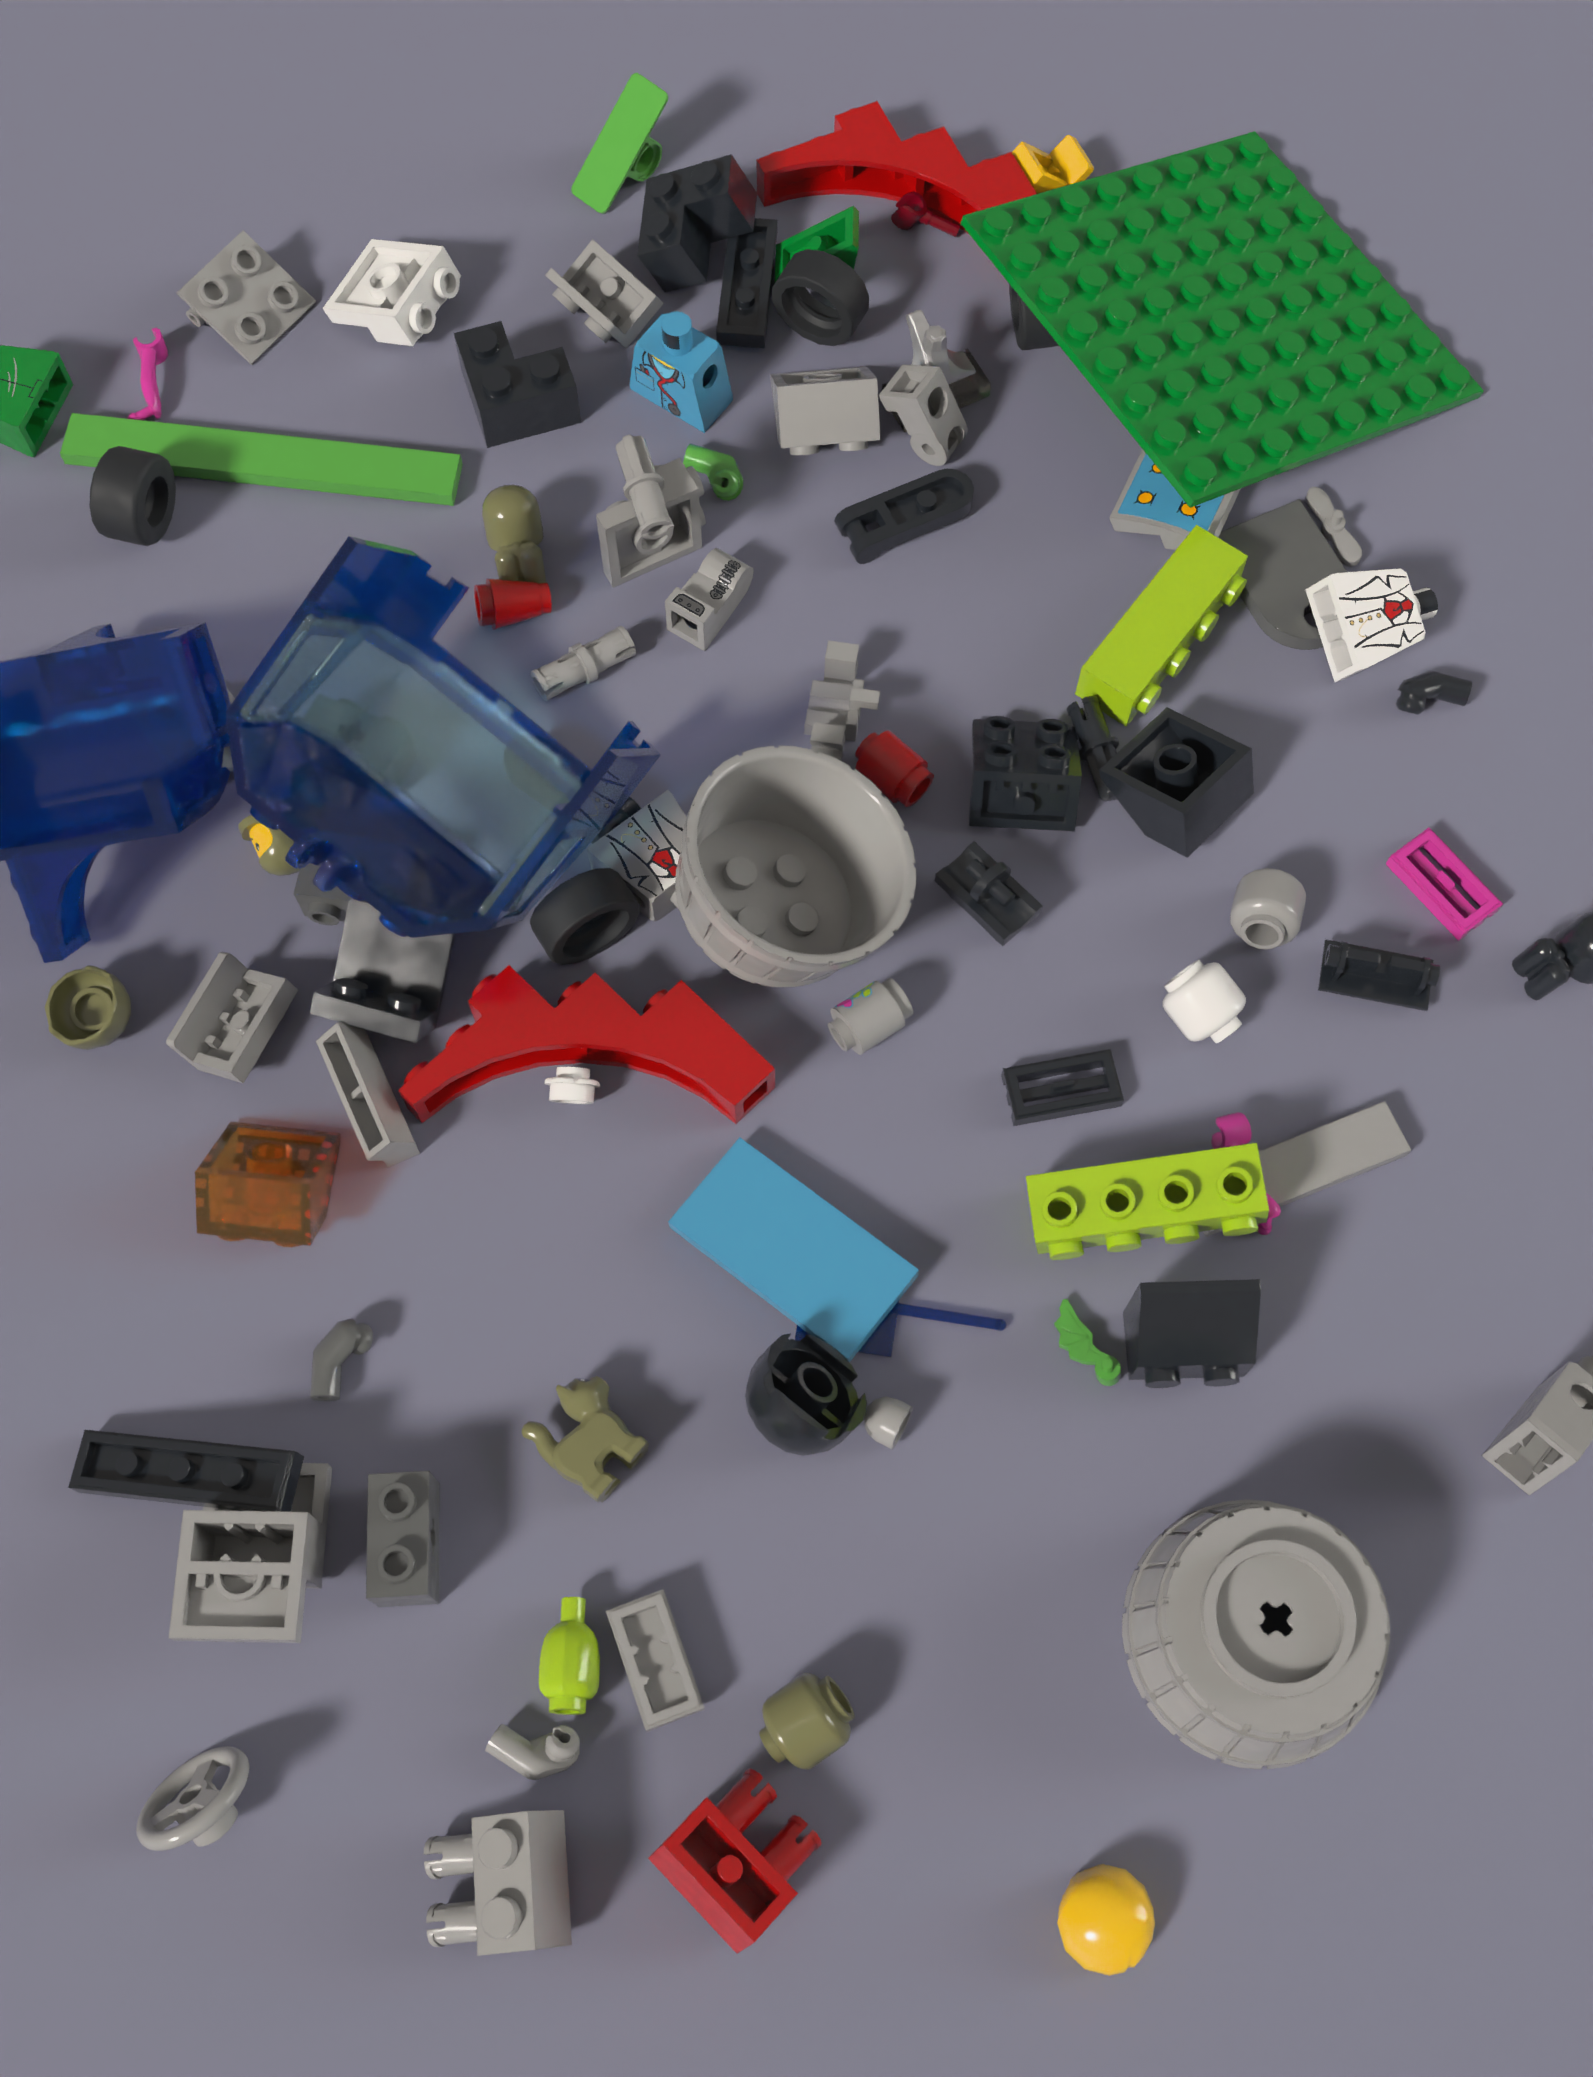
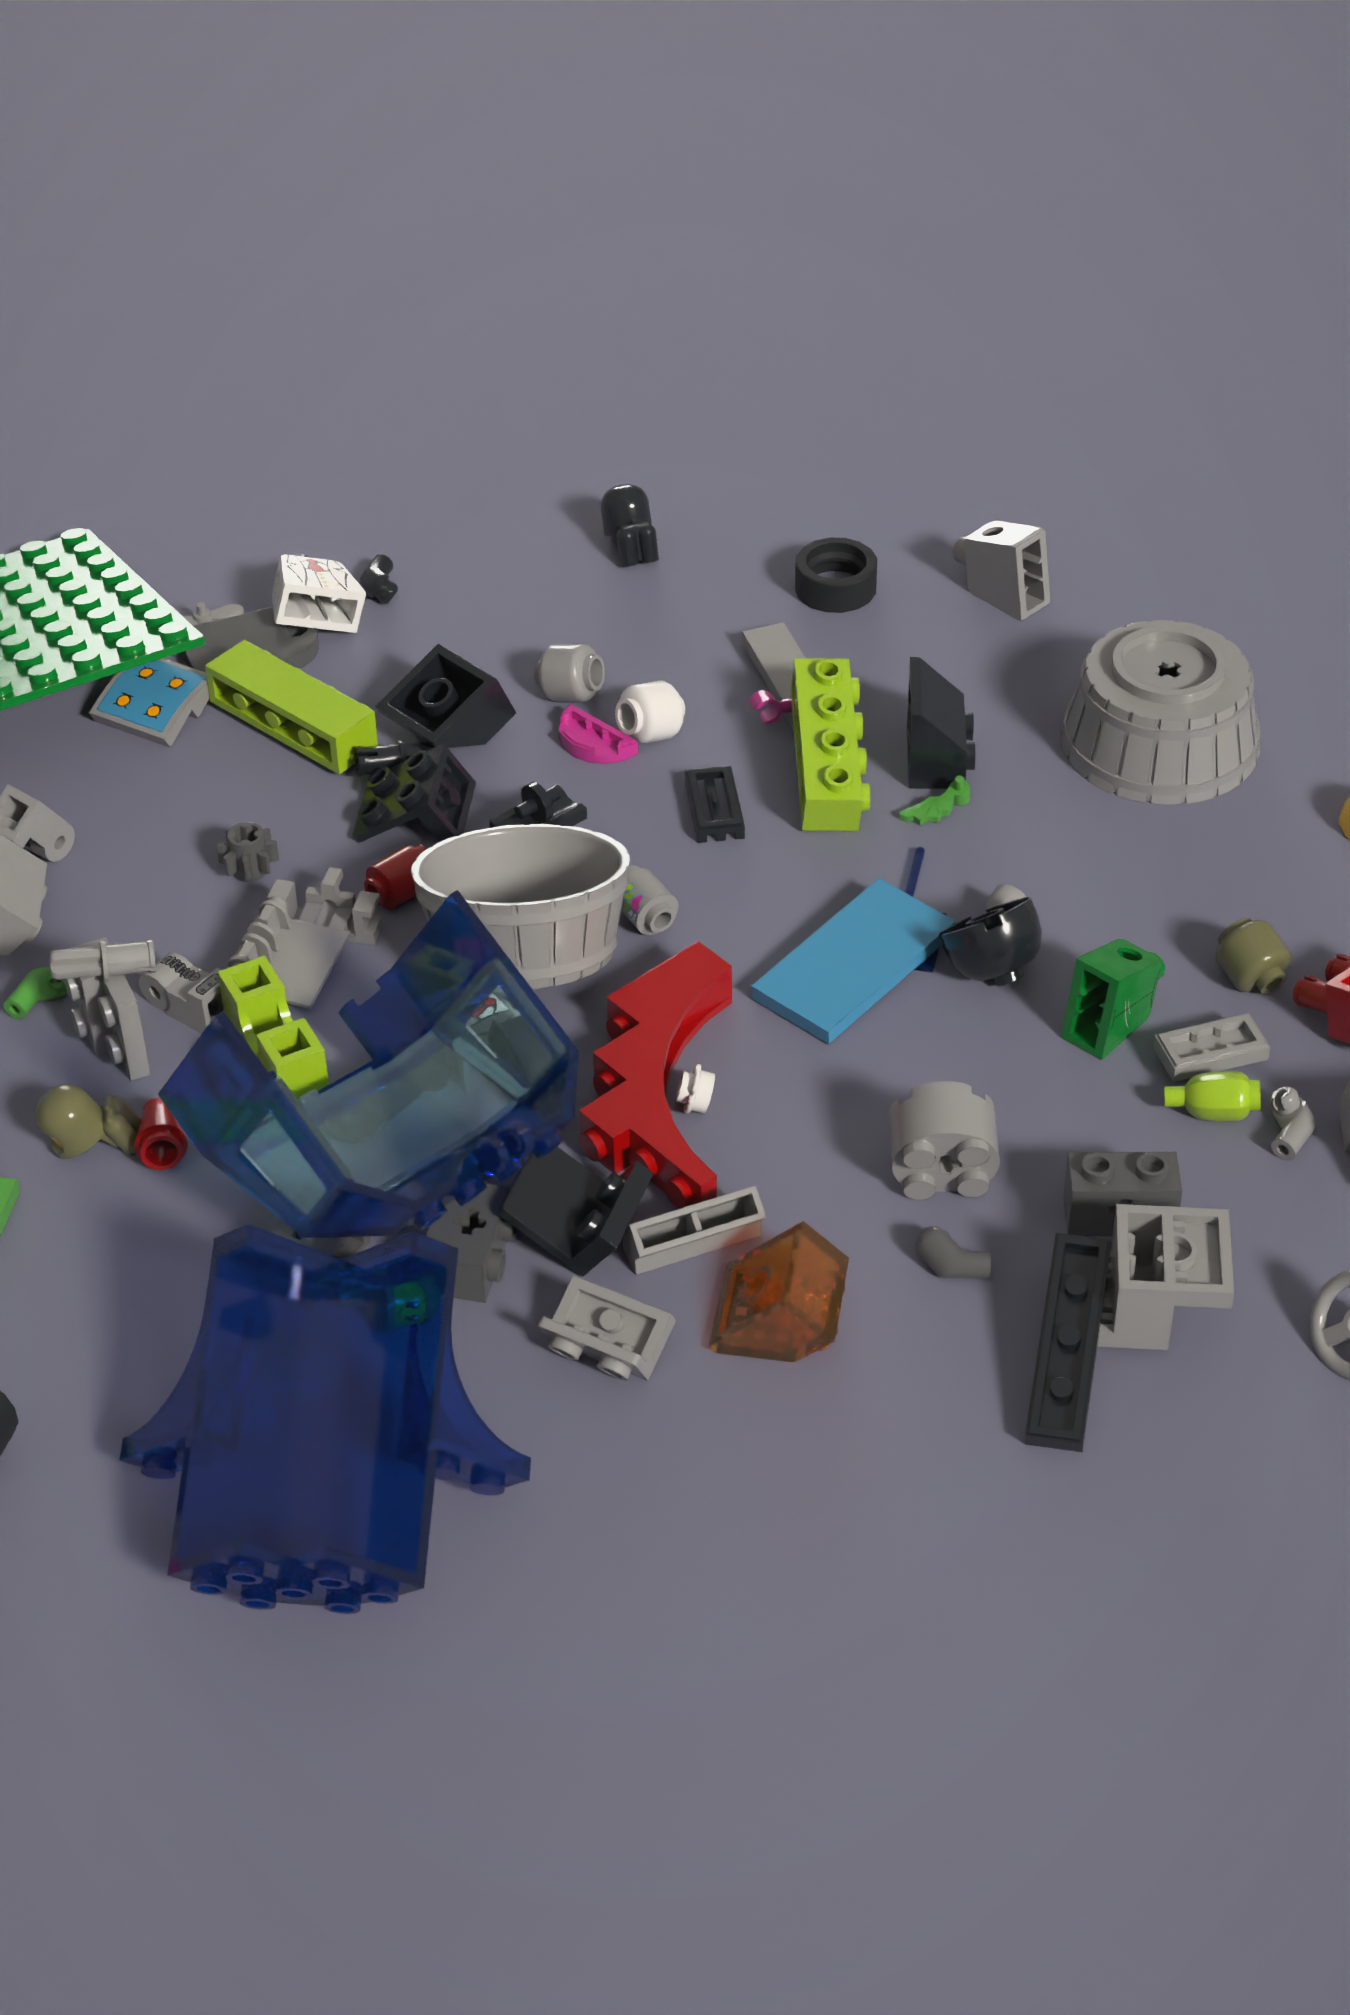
camera: 85 degrees left, 25 degrees down
(88, 1008) = (585, 1441): olive hair -> none
(464, 1339) = (943, 1140): none -> light grey brick
(591, 1444) = (1030, 1079): olive animal -> none
(667, 660) = (259, 1010): none -> lime arch
(698, 1530) = (1110, 996): none -> green torso
(764, 675) = (295, 948): none -> light grey hinge
(905, 512) = (126, 861): black plate -> none
(922, 619) = (247, 851): none -> dark grey gear
(1168, 945) = (593, 739): none -> dark pink tile
(1377, 975) = (632, 625): black hinge -> none
(1437, 889) = (553, 592): dark pink tile -> none
(1546, 1178) = (834, 593): none -> black tyre

